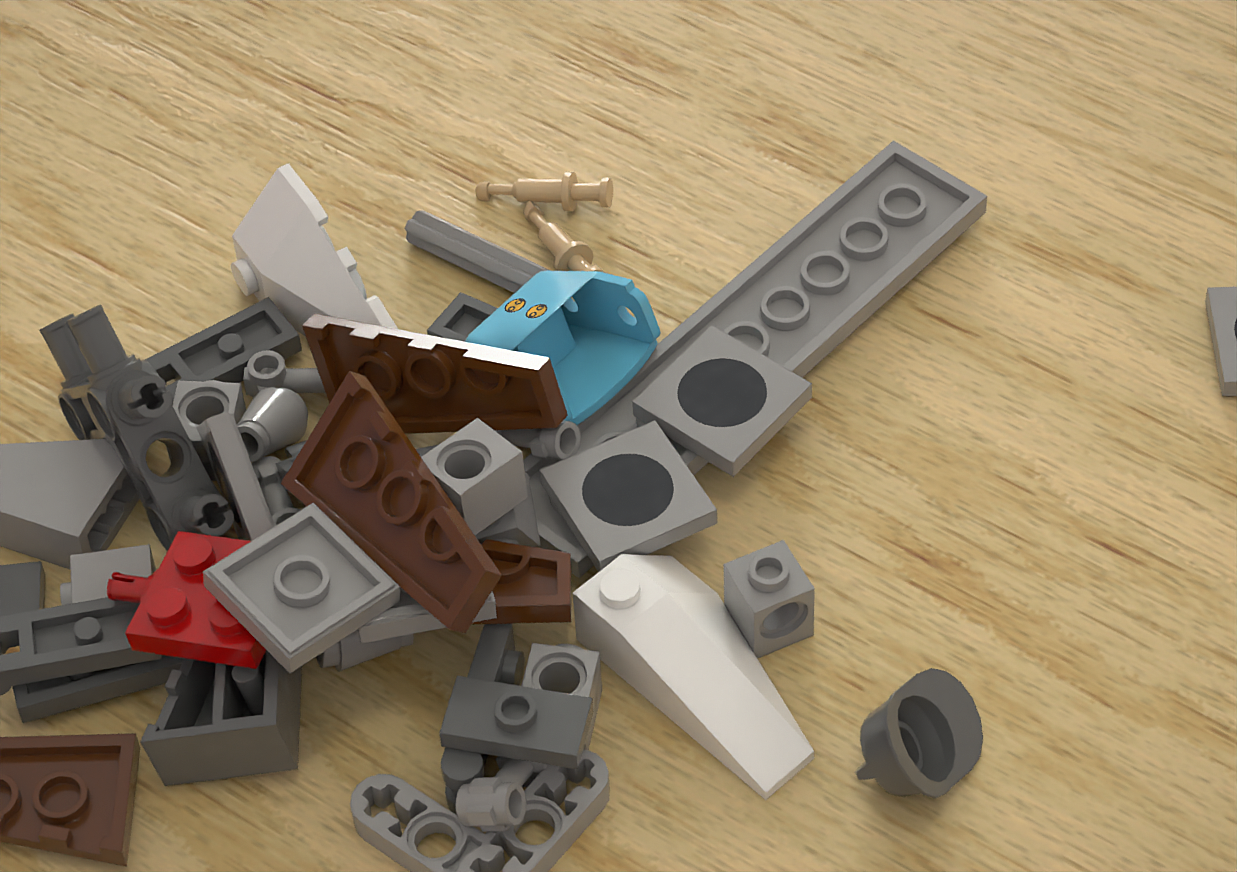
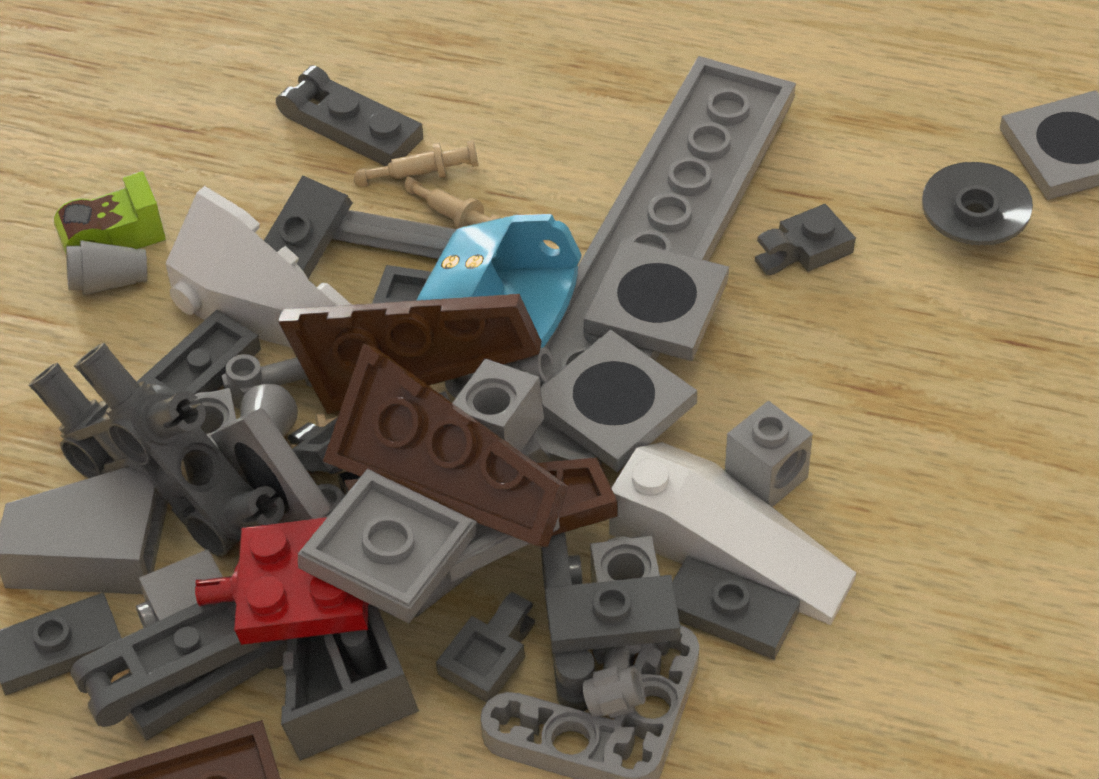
camera: 20 degrees left, 0 degrees up
(178, 223) = (103, 266): none -> light grey cone
(205, 178) = (118, 218): none -> lime leg
(391, 729) = (488, 654): none -> dark grey plate
(393, 233) = (309, 222): none -> dark grey plate
(497, 122) = (349, 117): none -> dark grey plate
(663, 751) = (733, 607): none -> dark grey plate
(922, 737) = (944, 537): dark grey piece -> none
(928, 373) = (809, 237): none -> dark grey plate
(1129, 380) = (977, 203): none -> dark grey dish

